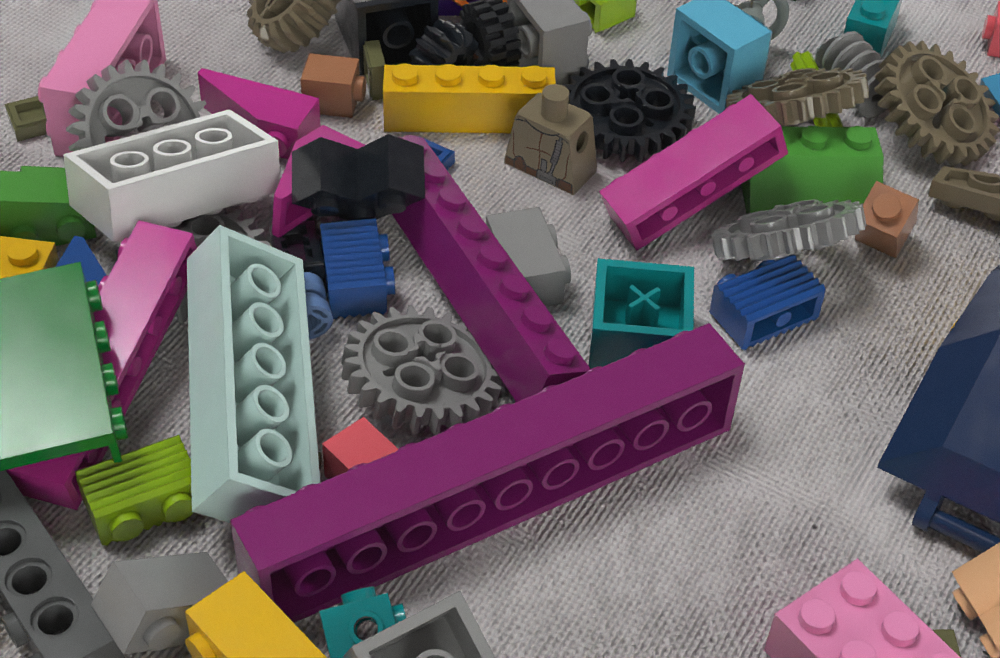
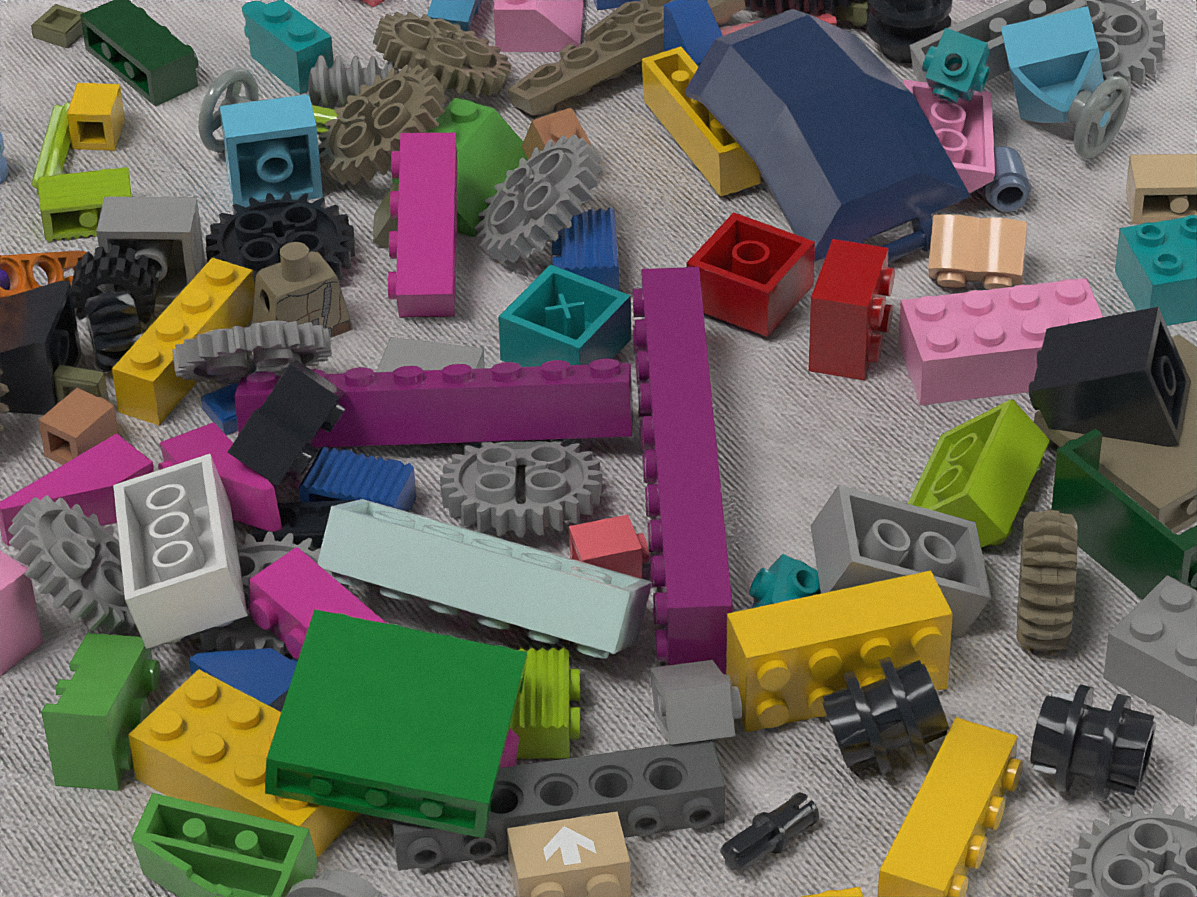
camera: 60 degrees left, 5 degrees down
(445, 128) = (227, 353): none -> light grey gear
(818, 519) = (850, 309): none -> red brick
(821, 425) = (753, 273): none -> red brick

